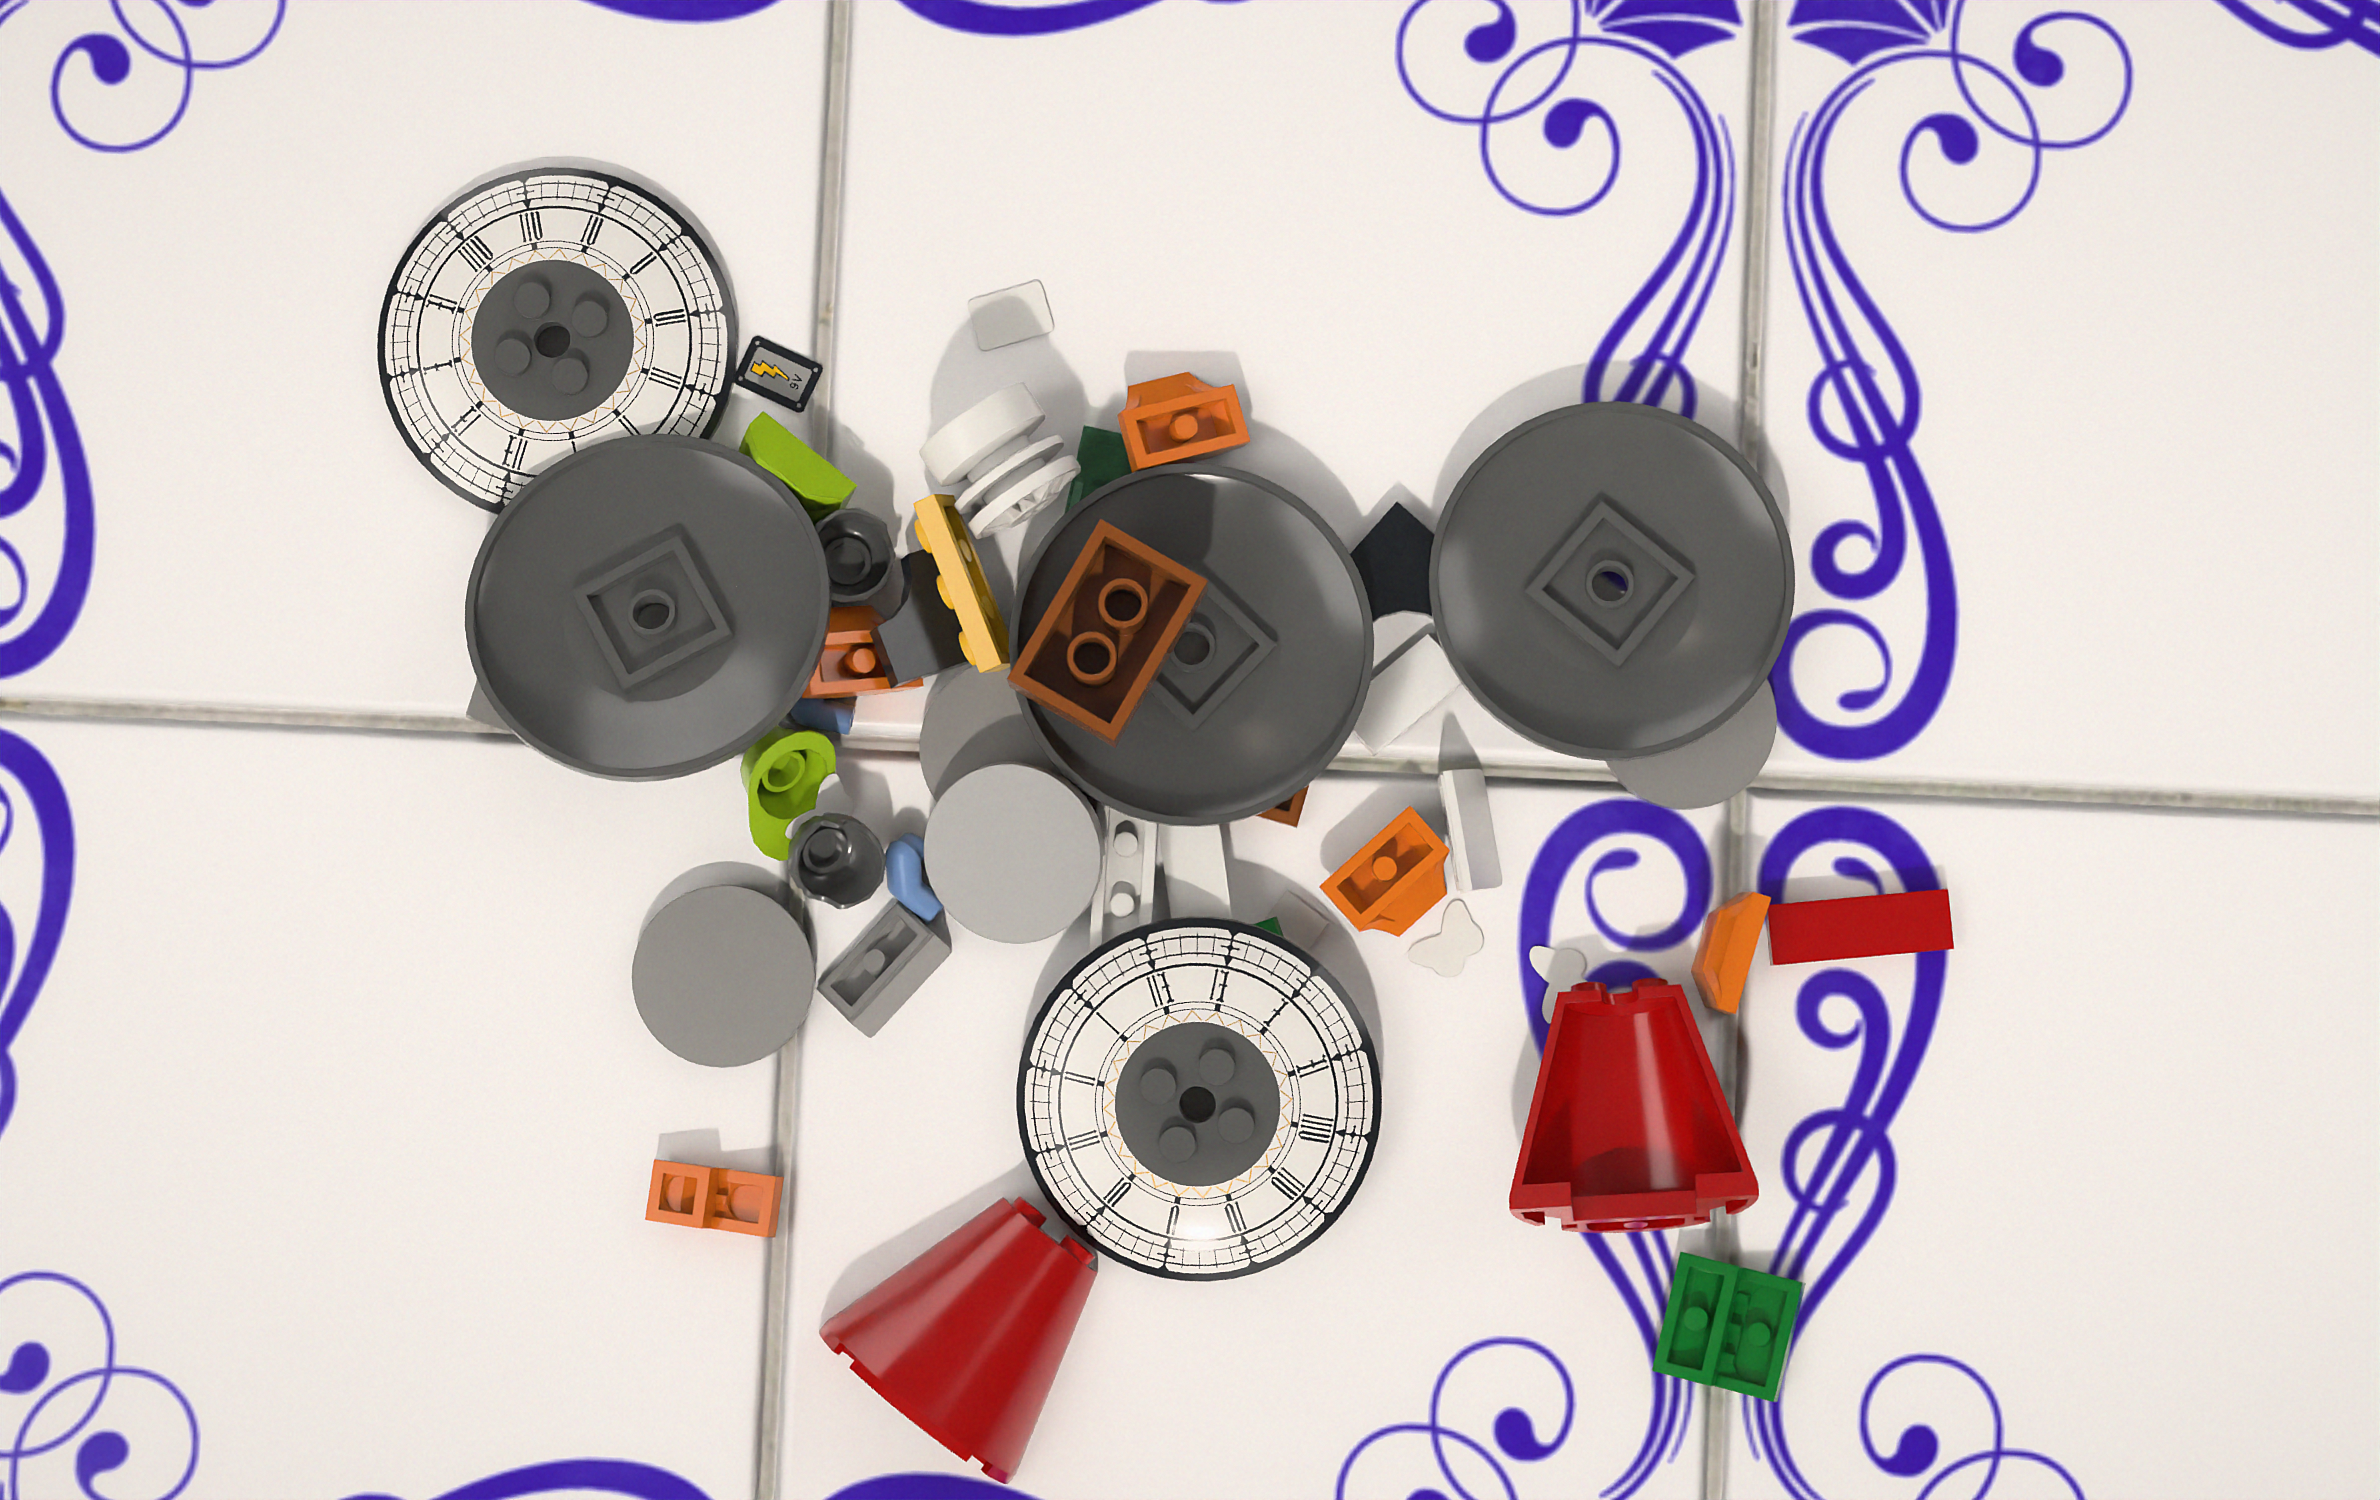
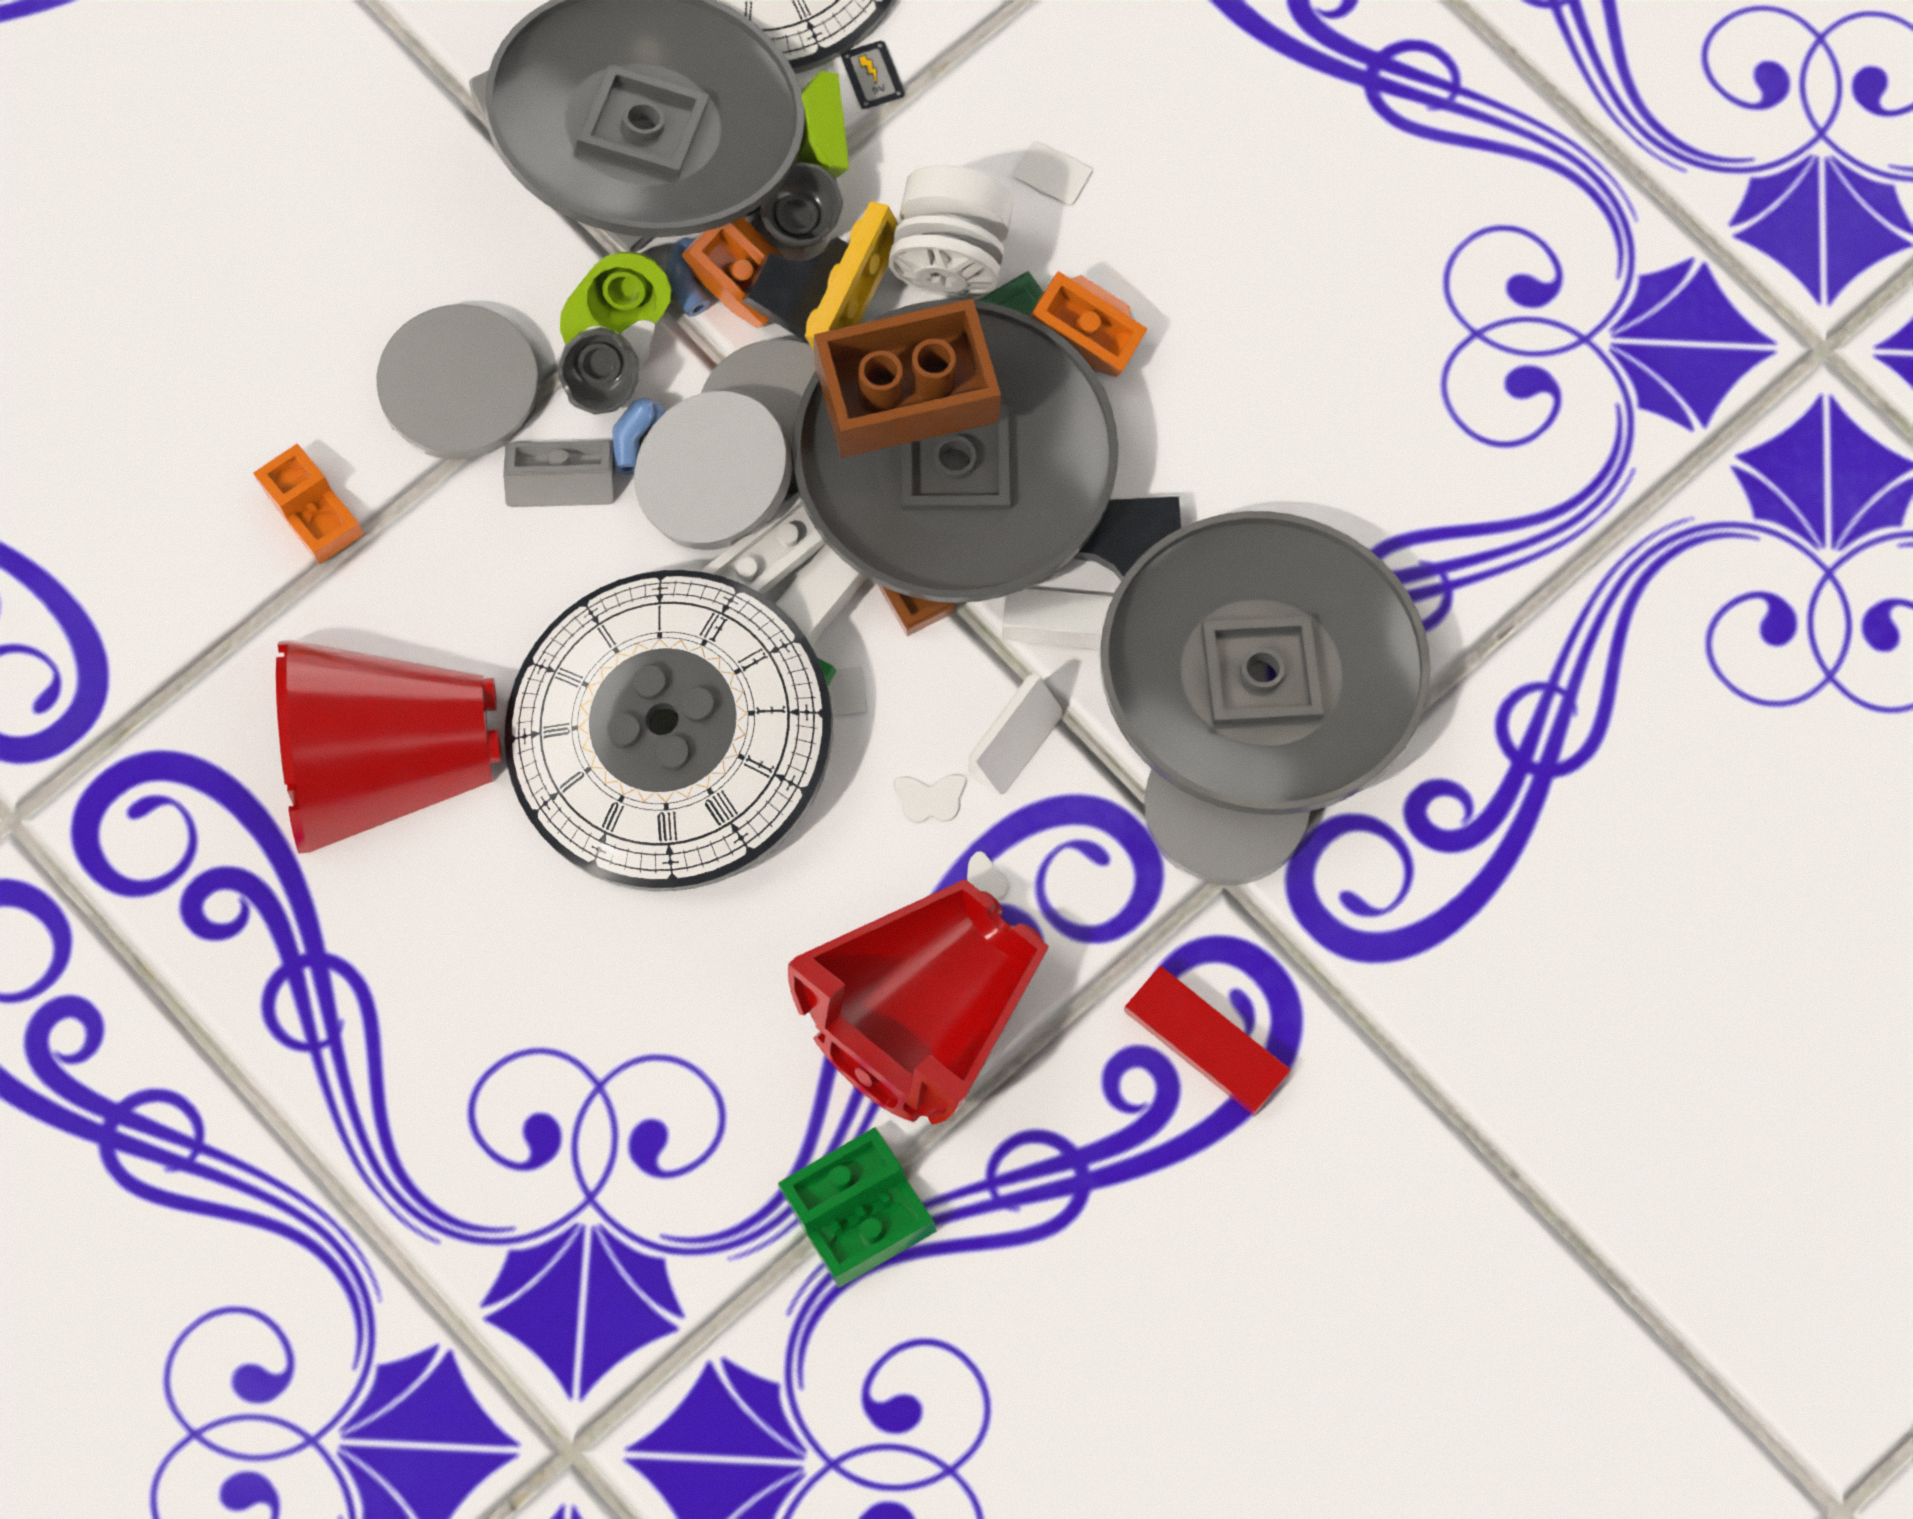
camera: 45 degrees right, 15 degrees down
(1391, 877) = (933, 715): orange slope -> none
(1728, 950) = (1106, 962): orange slope -> none

